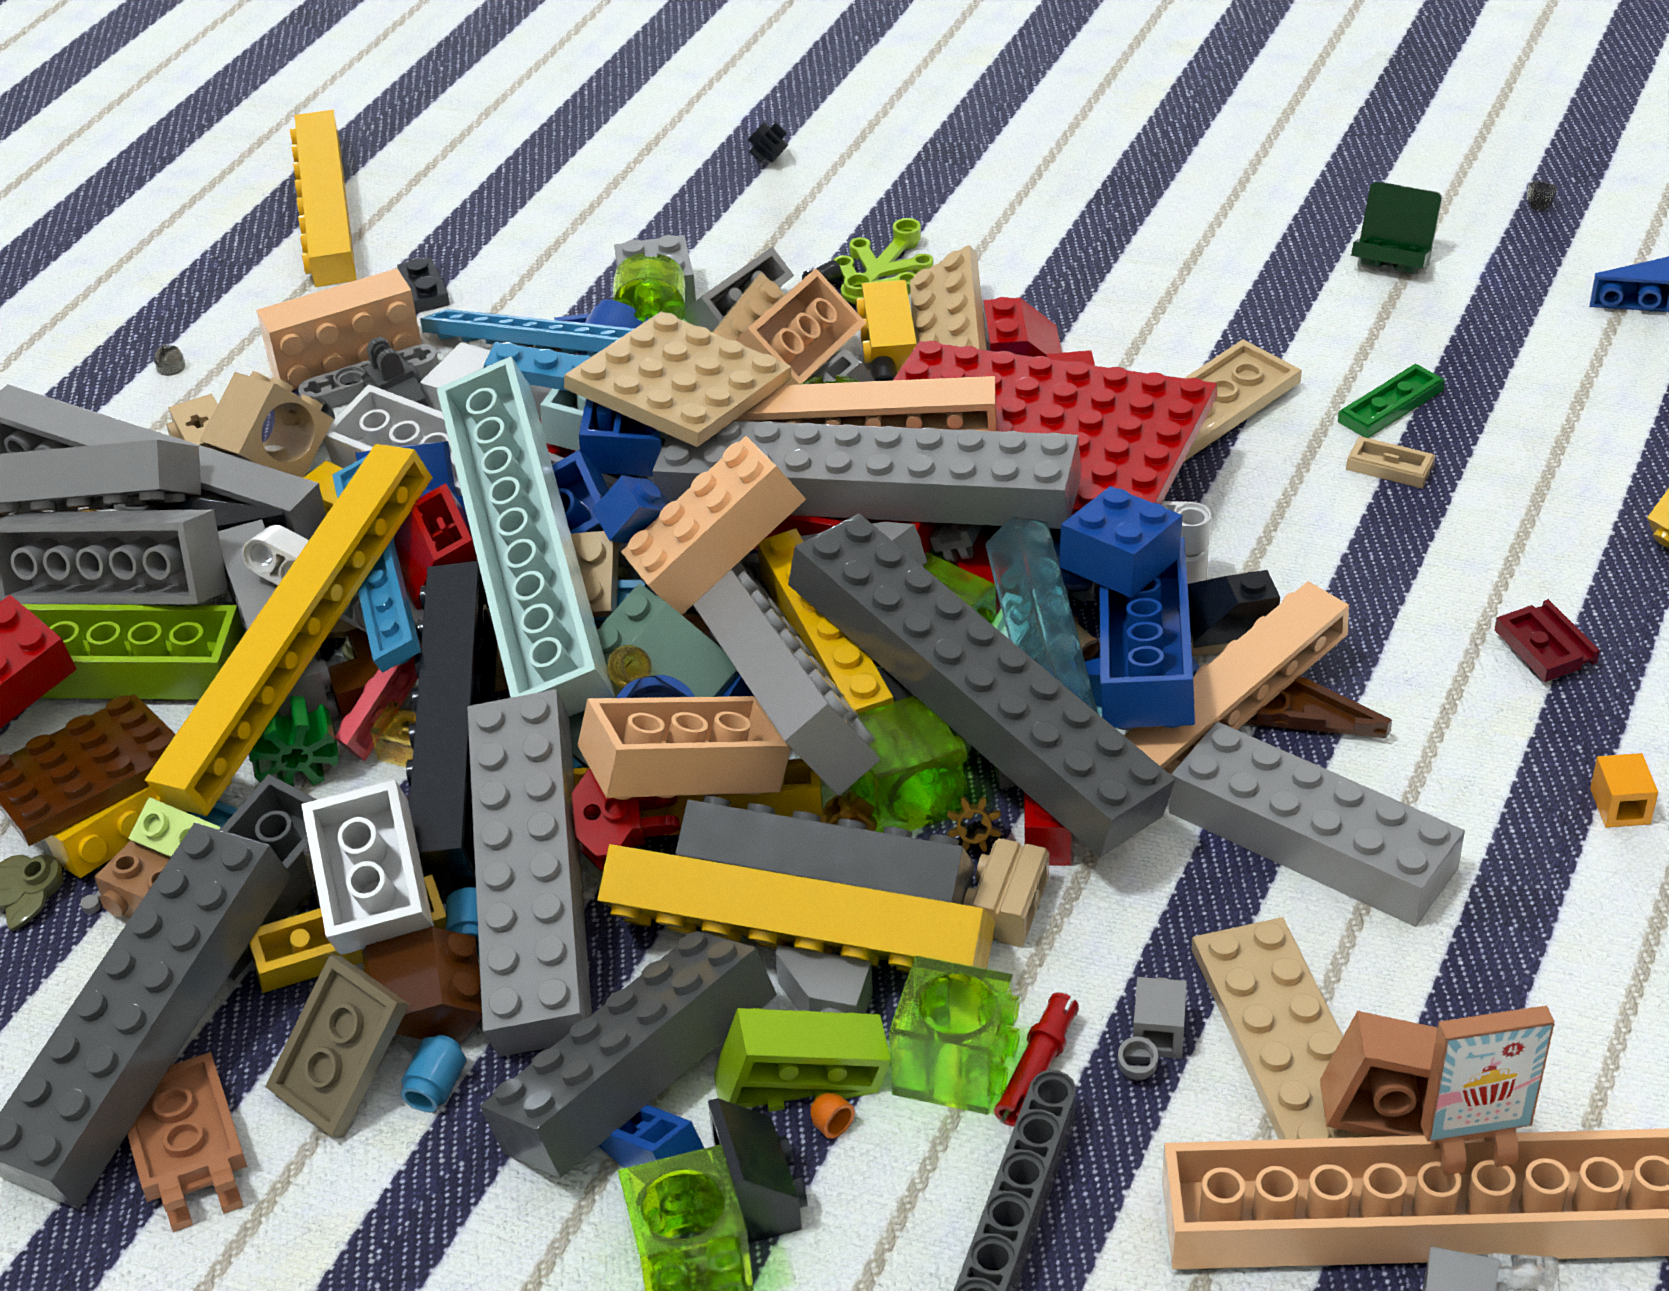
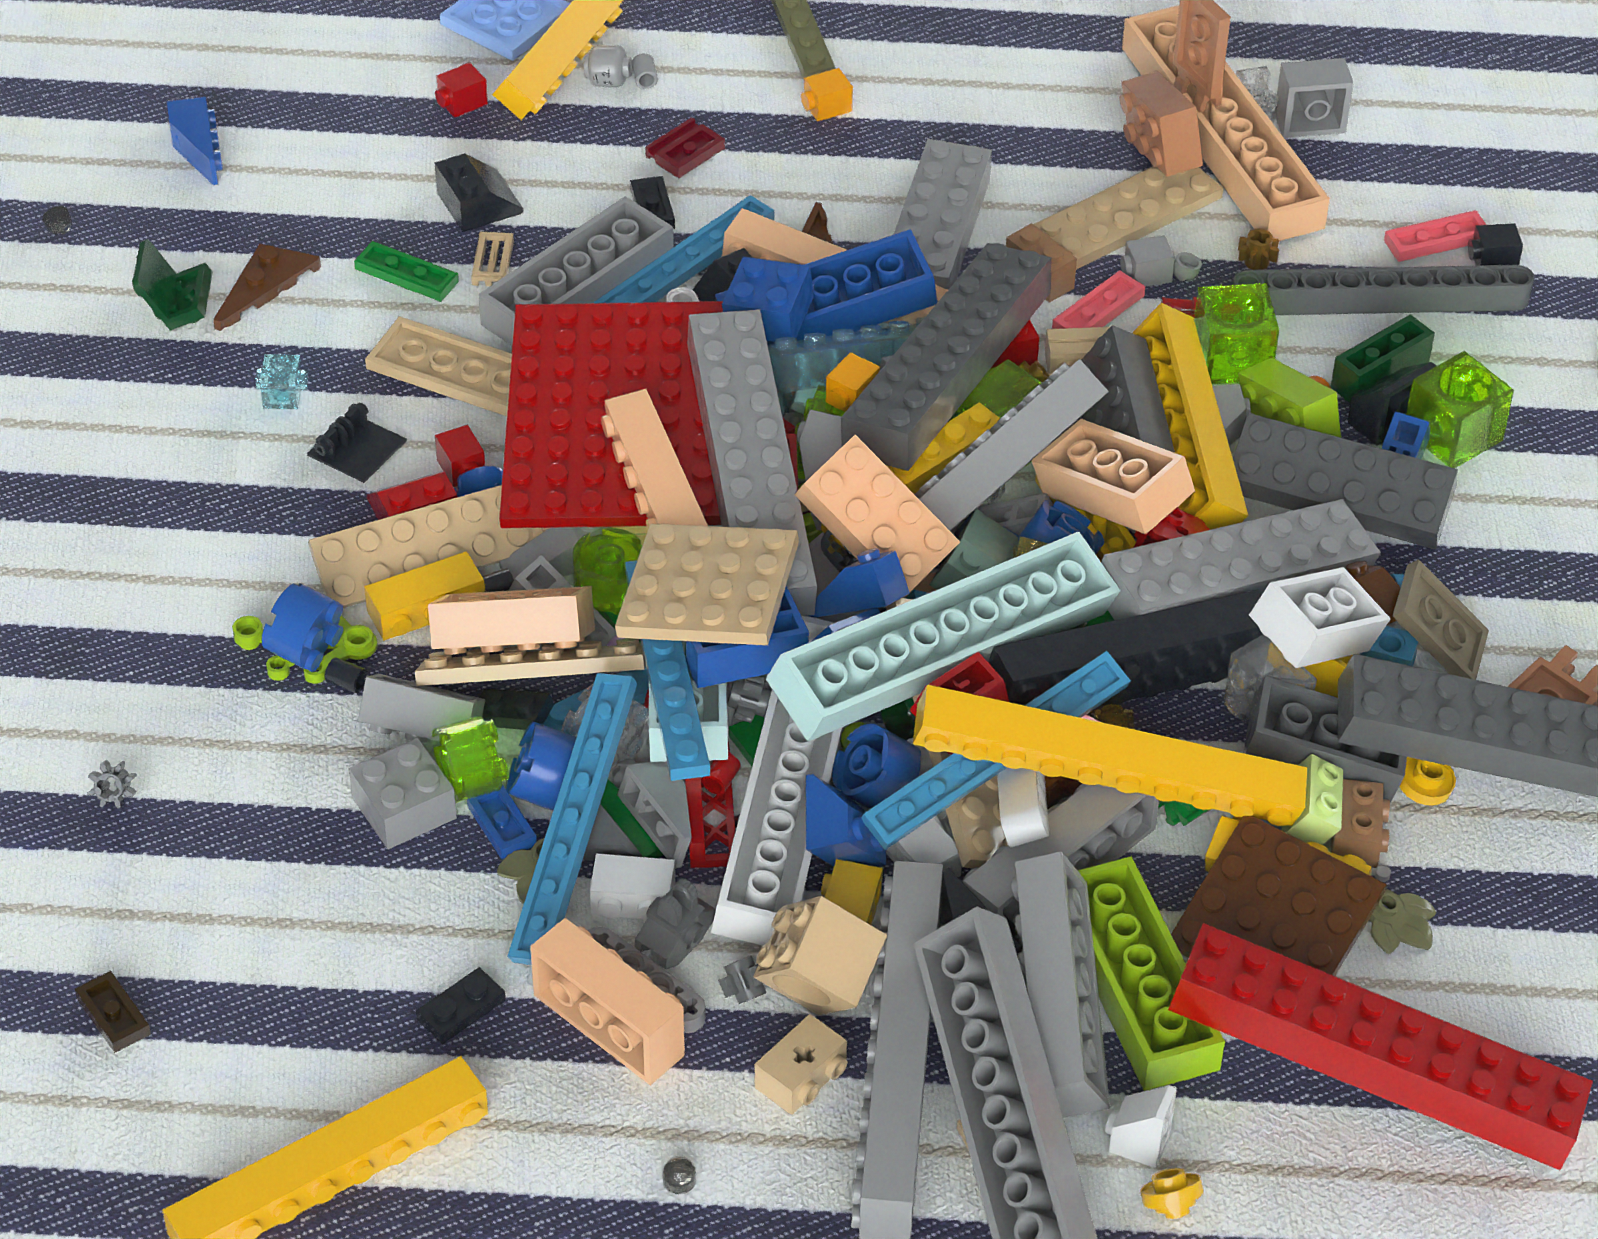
camera: 115 degrees left, 5 degrees up
(544, 125) = (112, 1011): none -> dark brown plate
(836, 1194) = (1395, 347): none -> dark green brick
(866, 232) = (303, 626): none -> blue brick
(967, 581) = (849, 381): none -> light orange brick
(1092, 940) = (1102, 303): none -> coral plate
(1127, 324) = (356, 444): none -> black hinge
(1137, 1151) = (1258, 249): none -> pearl gold gear
(1195, 898) = (1062, 261): none -> medium nougat brick
(1228, 282) = (281, 381): none -> clear light blue brick
(1297, 562) = (682, 260): none -> dark azure plate
(1316, 496) = (579, 265): none -> light grey brick
(1410, 309) = (262, 280): none -> reddish brown wing
(1441, 590) = (653, 196): none -> black plate
(1504, 457) = (474, 192): none -> black slope

